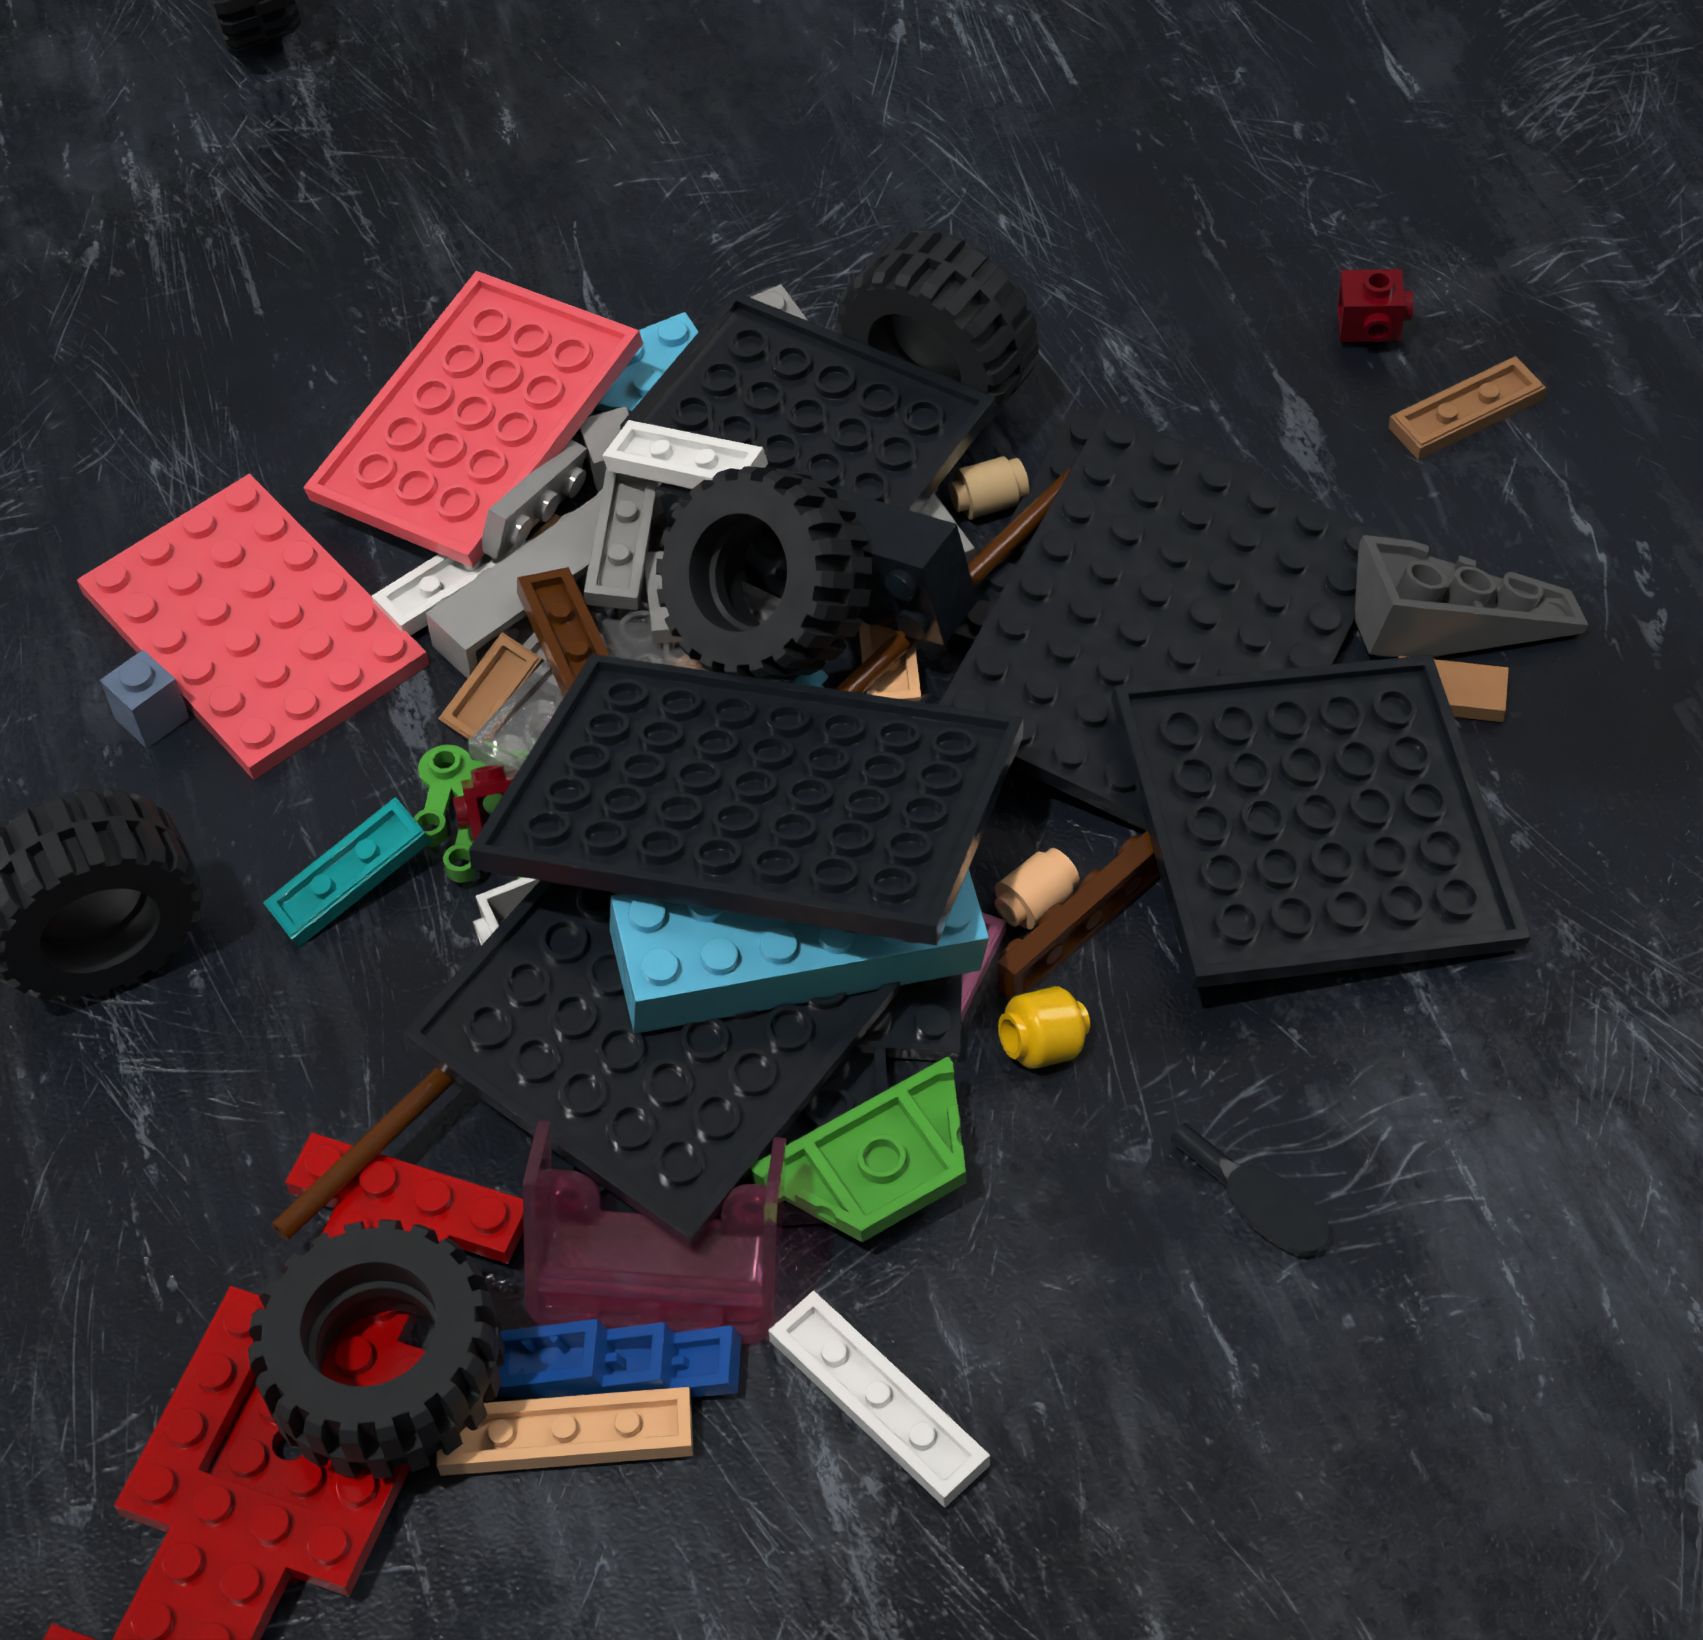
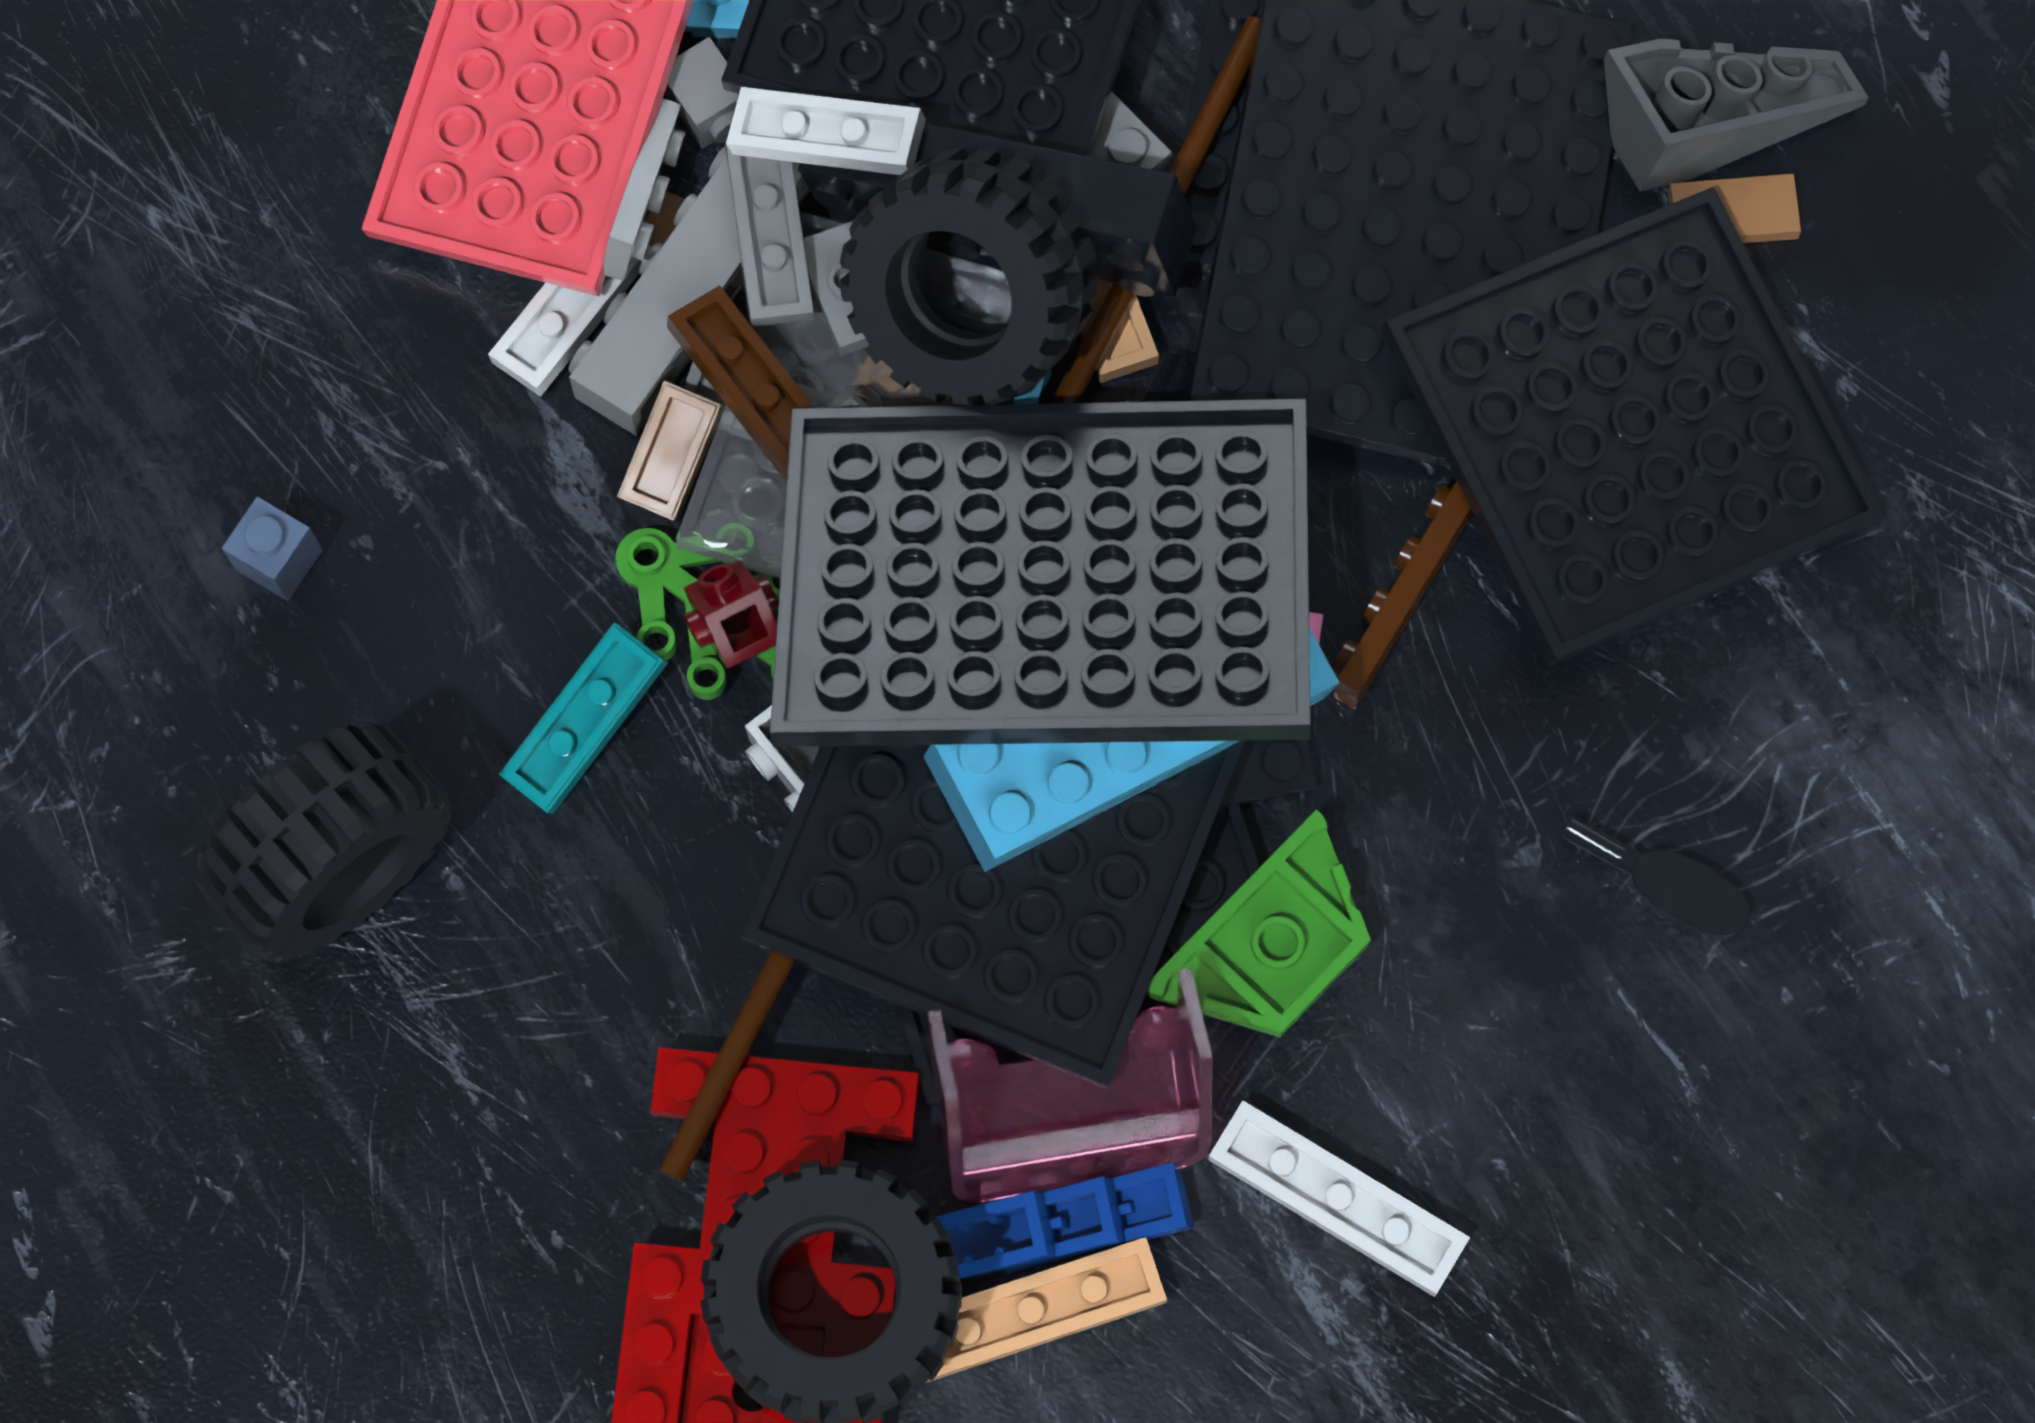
camera: 15 degrees left, 20 degrees up
(253, 624) = (352, 412): coral plate -> none
(988, 487) = (1160, 51): tan brick -> none
(1036, 887) = (1348, 571): light nougat brick -> none
(1043, 1027) = (1400, 739): yellow head -> none

